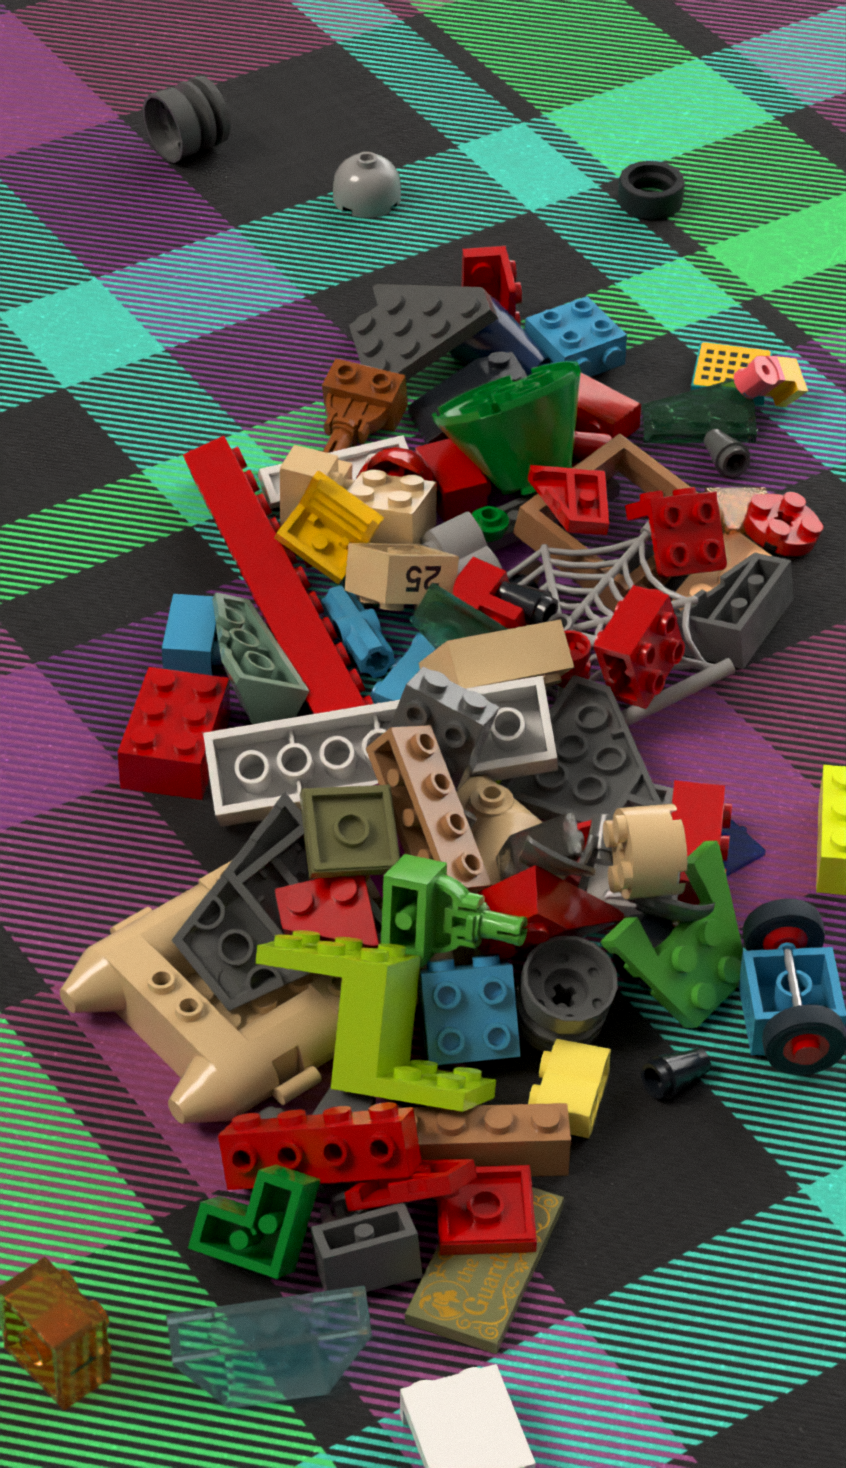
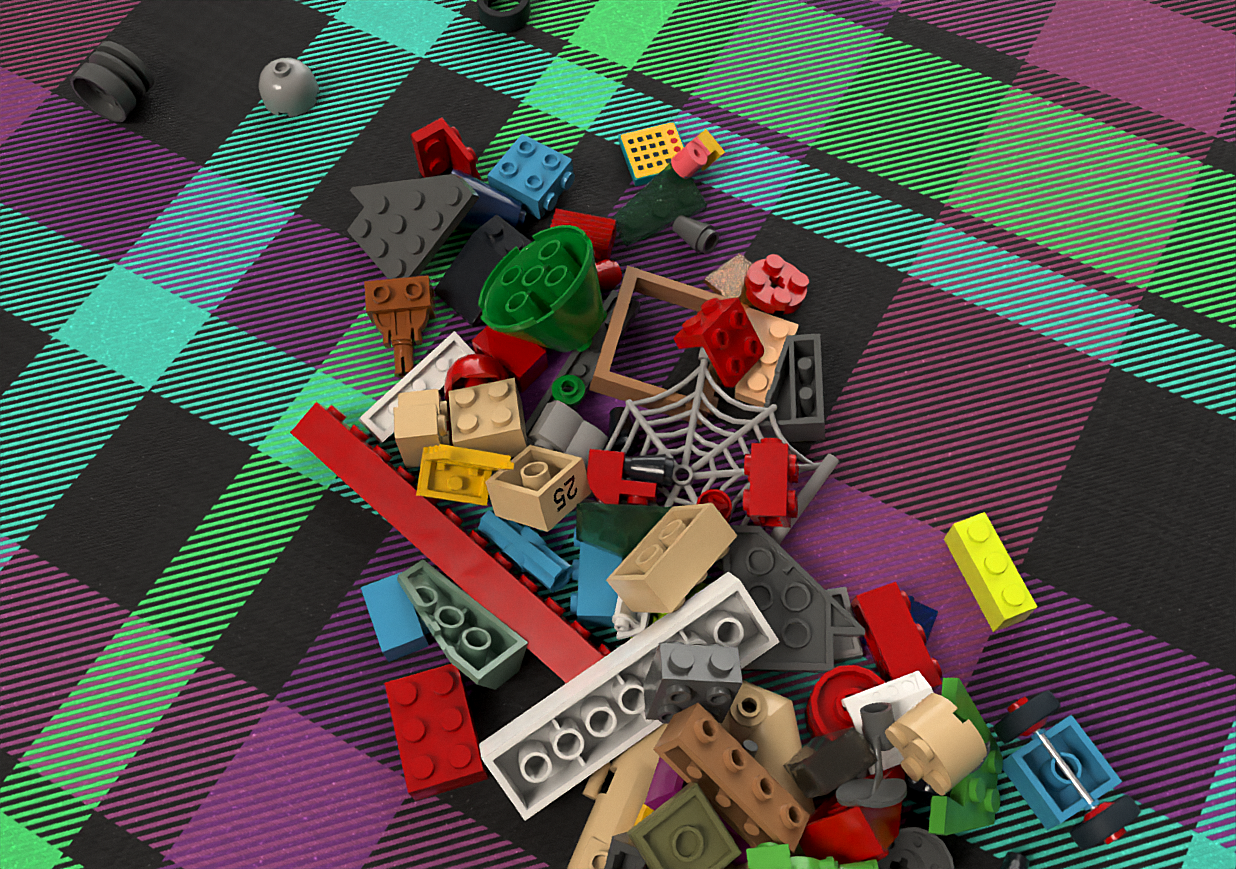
camera: 25 degrees left, 20 degrees up
(574, 497) = (632, 349): red wing -> none

